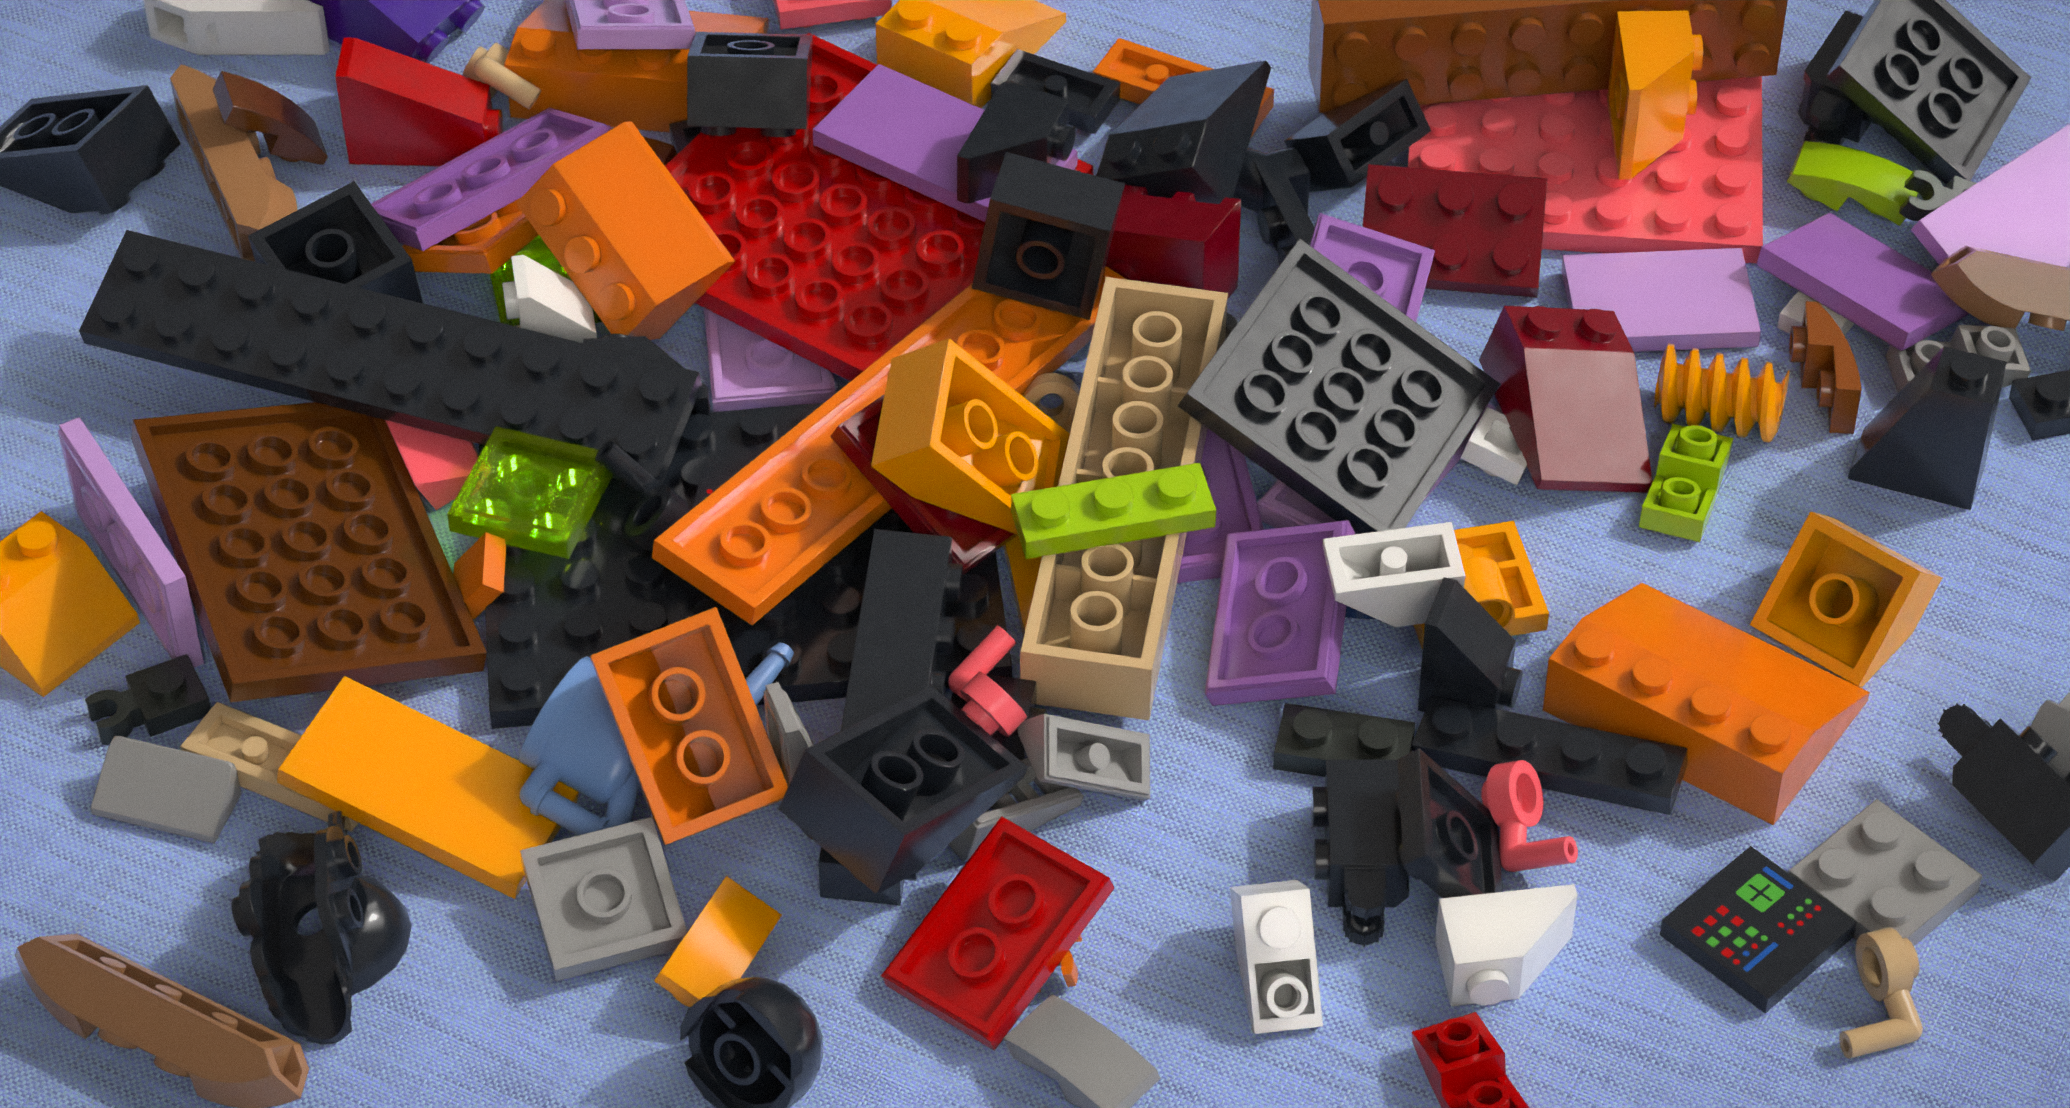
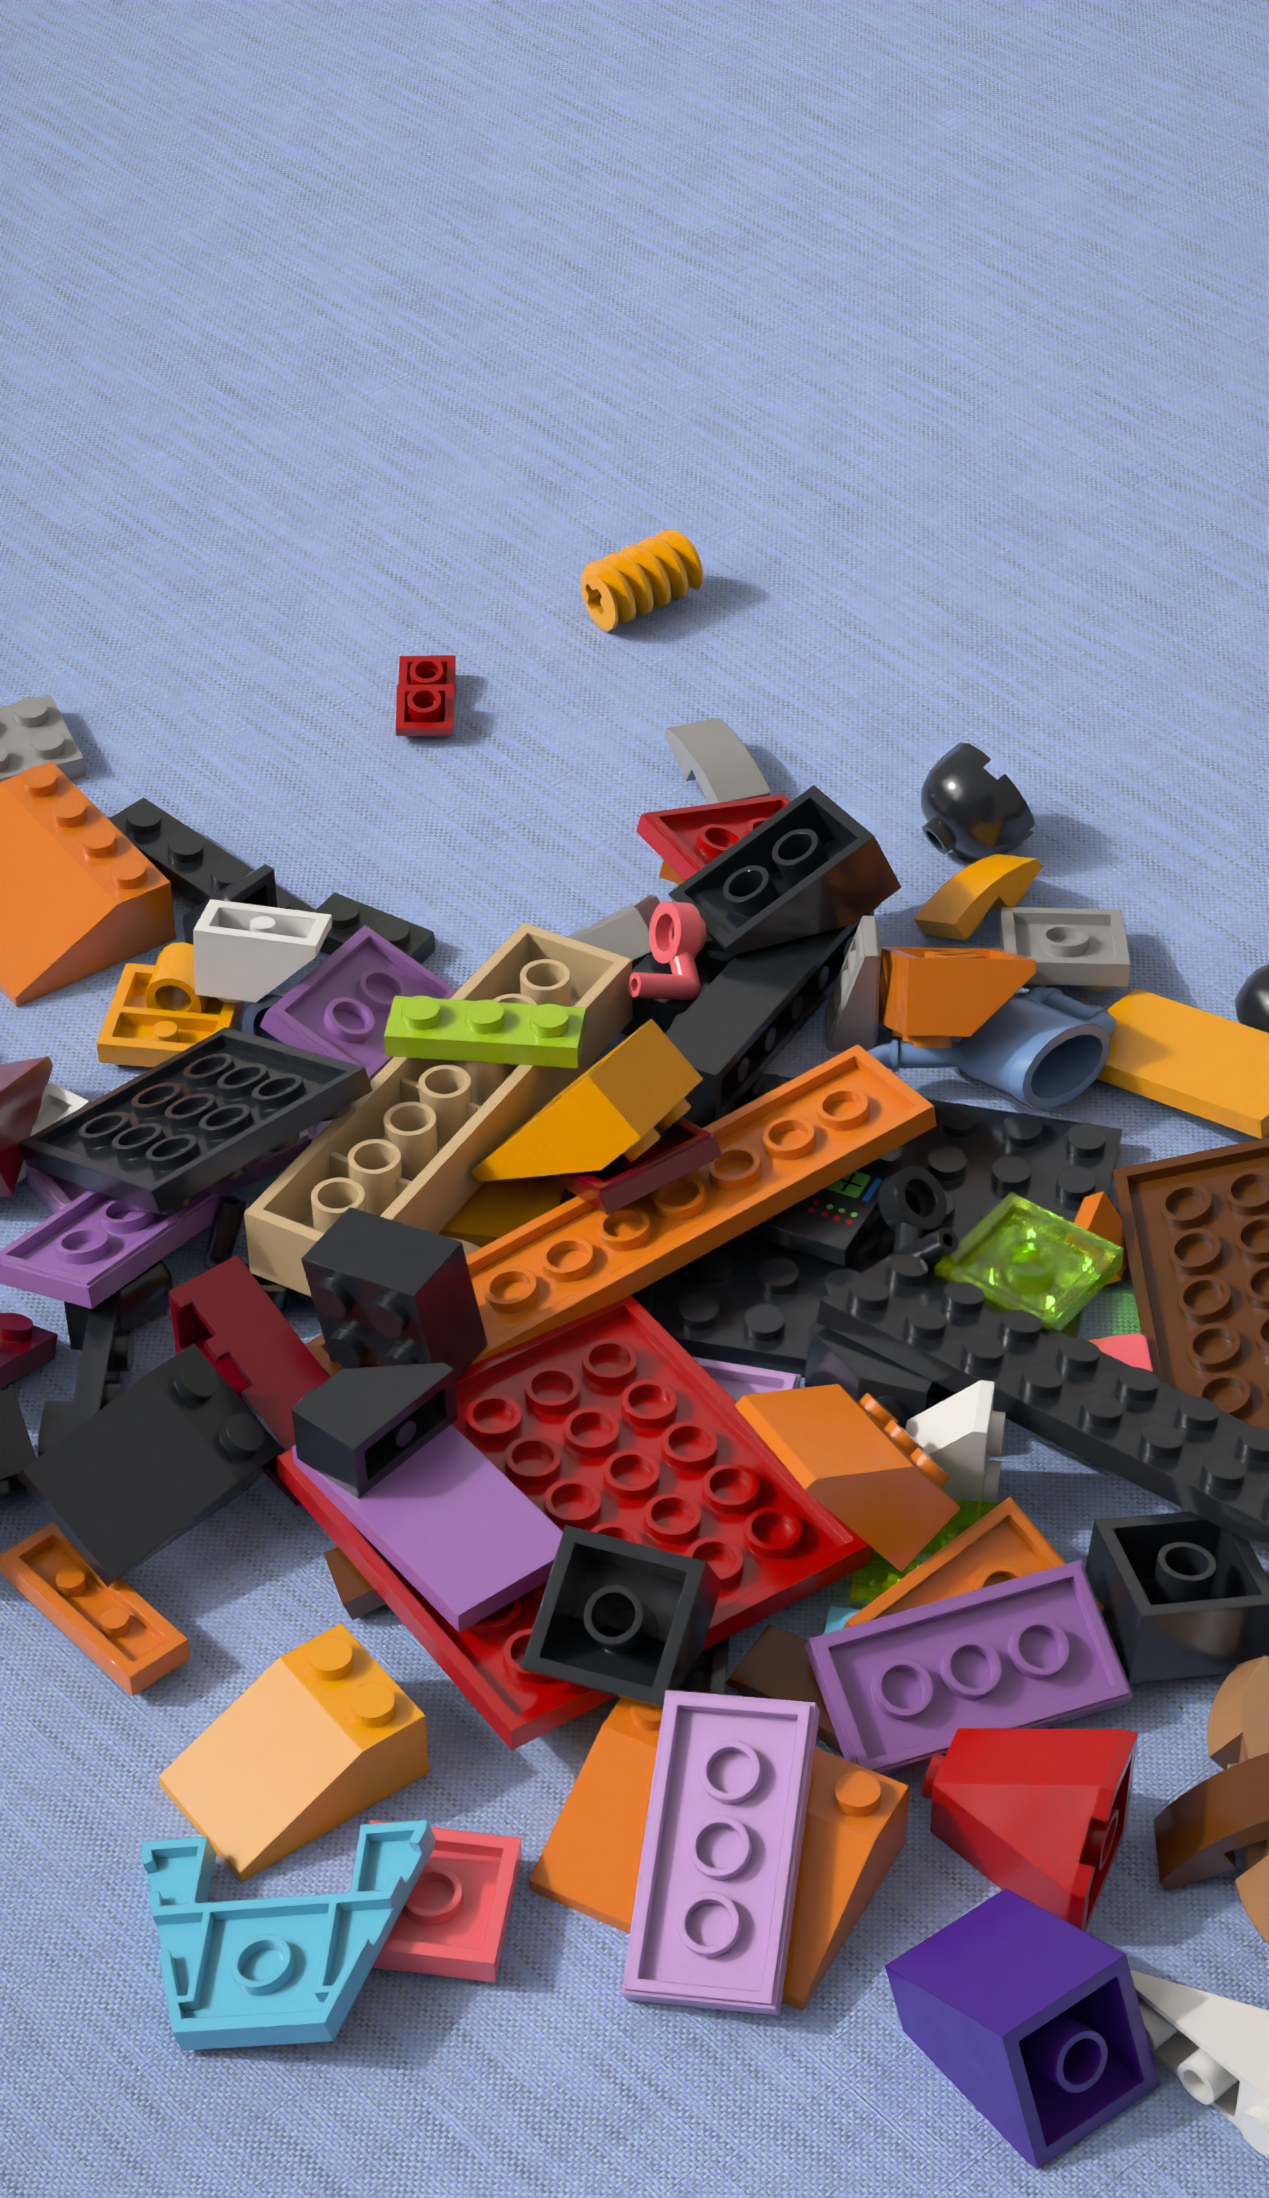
camera: 160 degrees left, 5 degrees down
(489, 68) = (918, 1850): tan plate -> none
(1089, 94) = (230, 1634): black plate -> none
(1277, 955) = (523, 787): white slope -> none
(1360, 844) = (402, 846): black hinge -> none
(1445, 831) = (346, 802): black plate -> none
(1501, 941) = (341, 758): white slope -> none
(1516, 802) = (268, 840): coral plate -> none
(1757, 929) = (137, 741): black tile -> none
(1887, 972) = (67, 675): tan plate -> none

